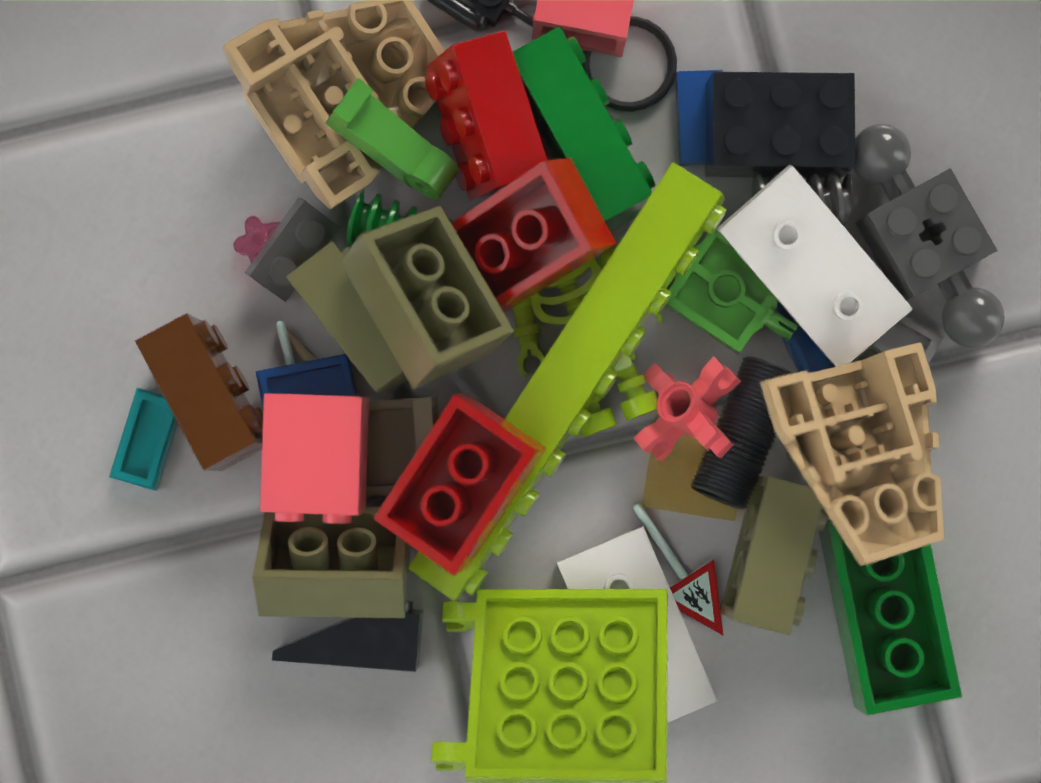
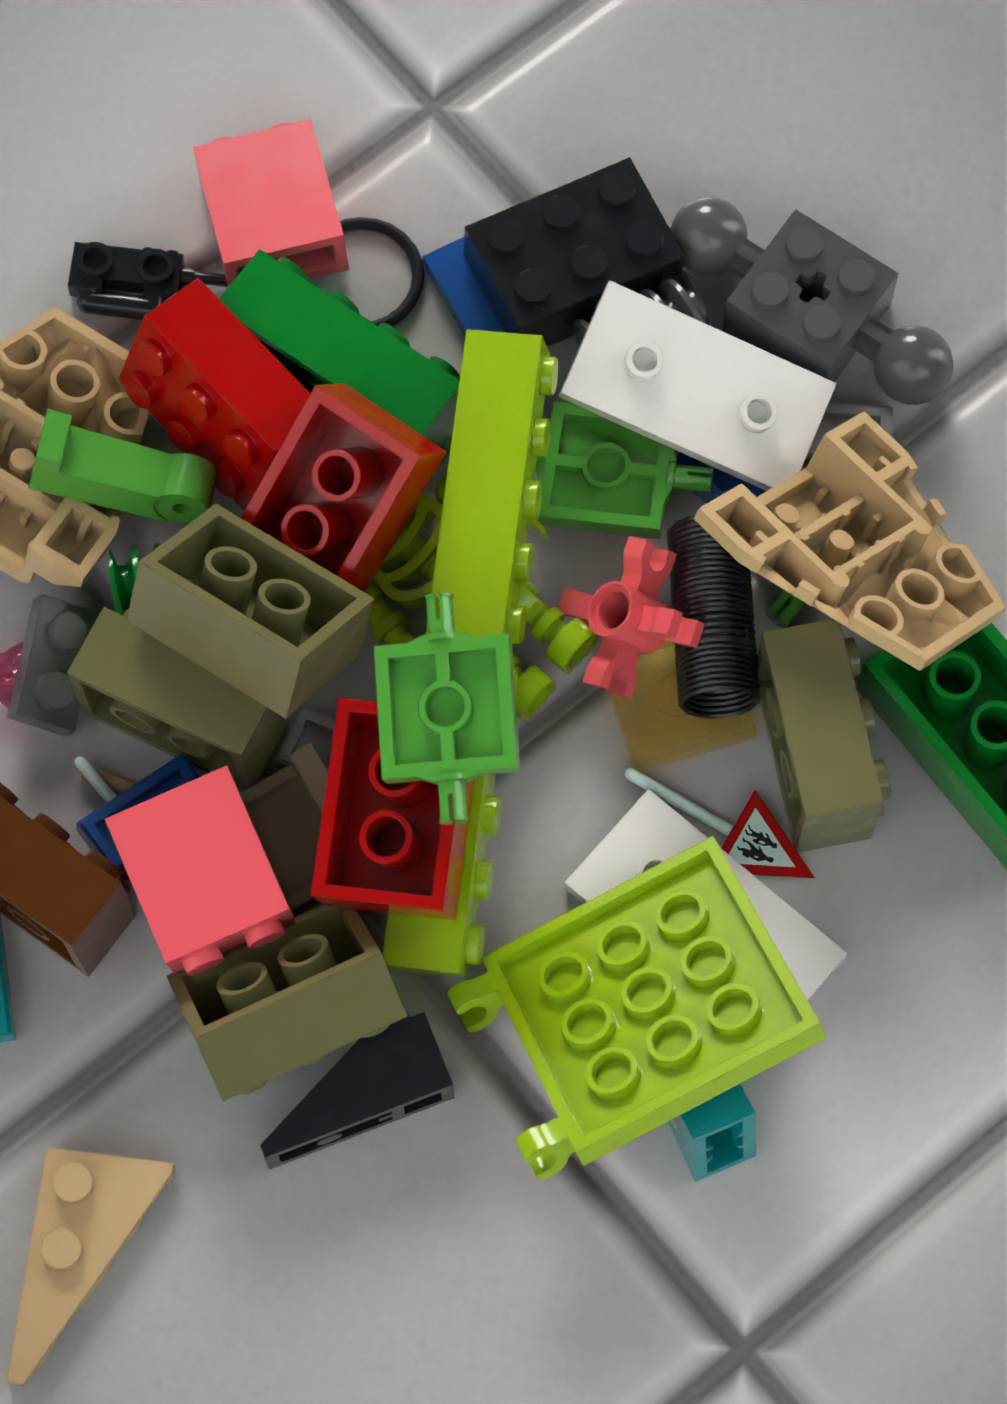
camera: 25 degrees left, 15 degrees down
(141, 636) = (81, 1221): none -> tan wing
(520, 446) = (446, 708): none -> bright green plate

